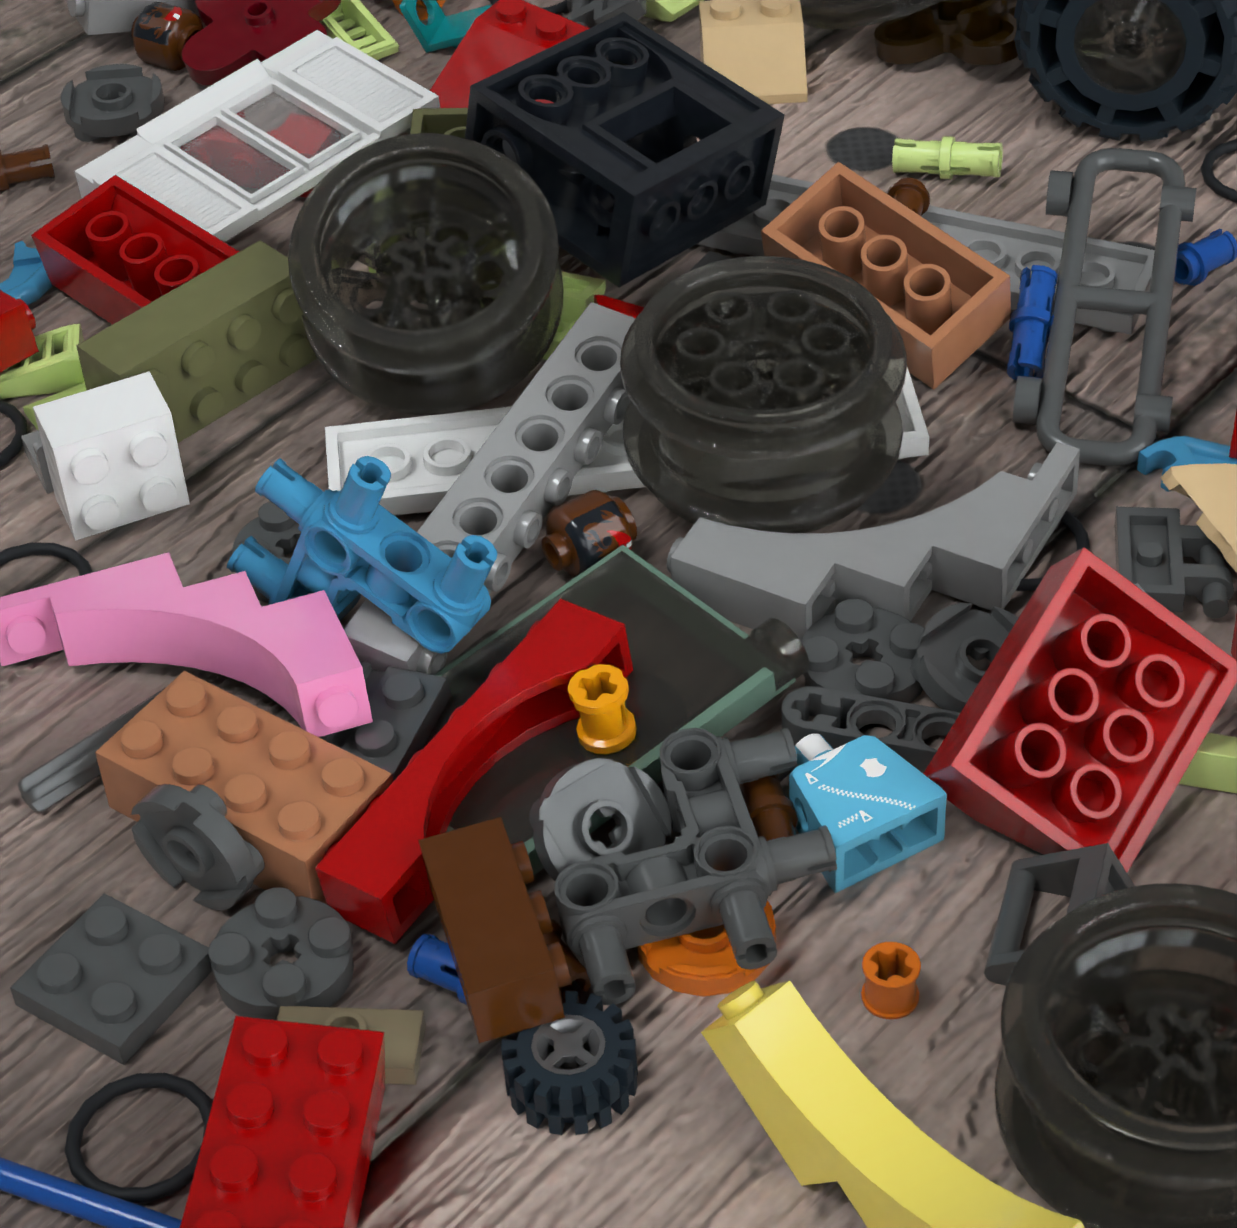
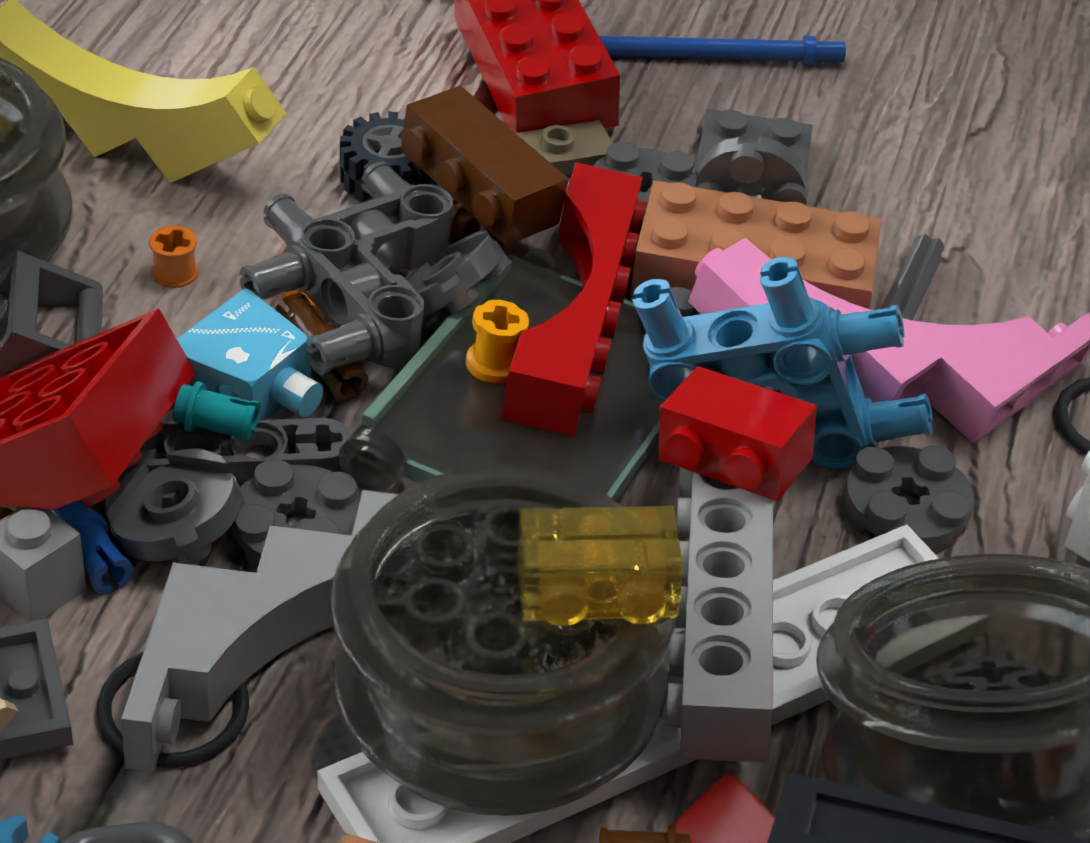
camera: 150 degrees right, 0 degrees up
(103, 1096) = (679, 64): black piece -> none
(453, 495) = (737, 432): none -> red brick
(700, 283) = (599, 564): none -> clear yellow brick
(911, 720) = (215, 412): none -> teal pin

